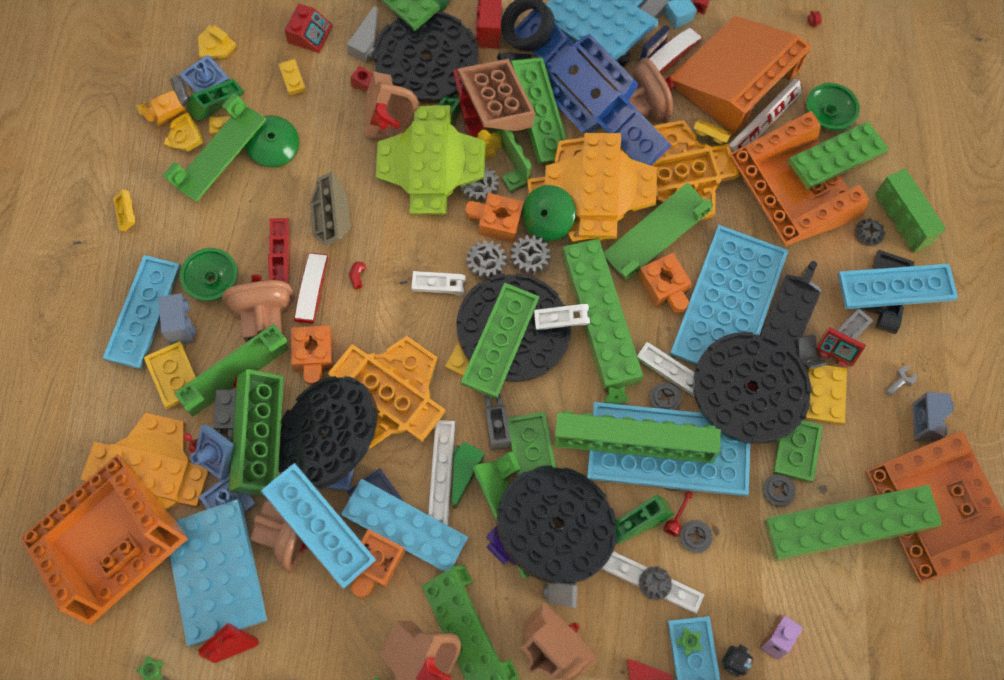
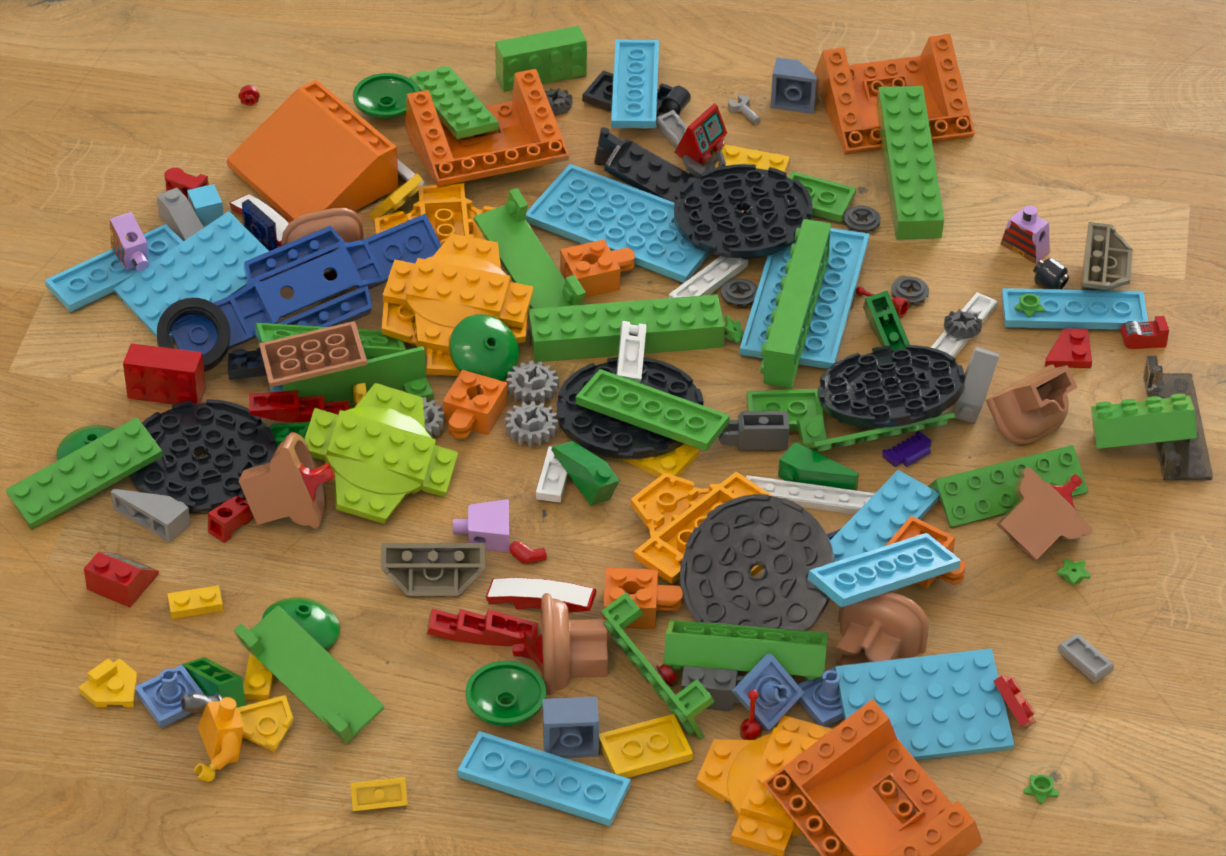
camera: 80 degrees left, 25 degrees down
(376, 243) = (486, 524): none -> lavender torso
(437, 300) = (587, 471): none -> green slope

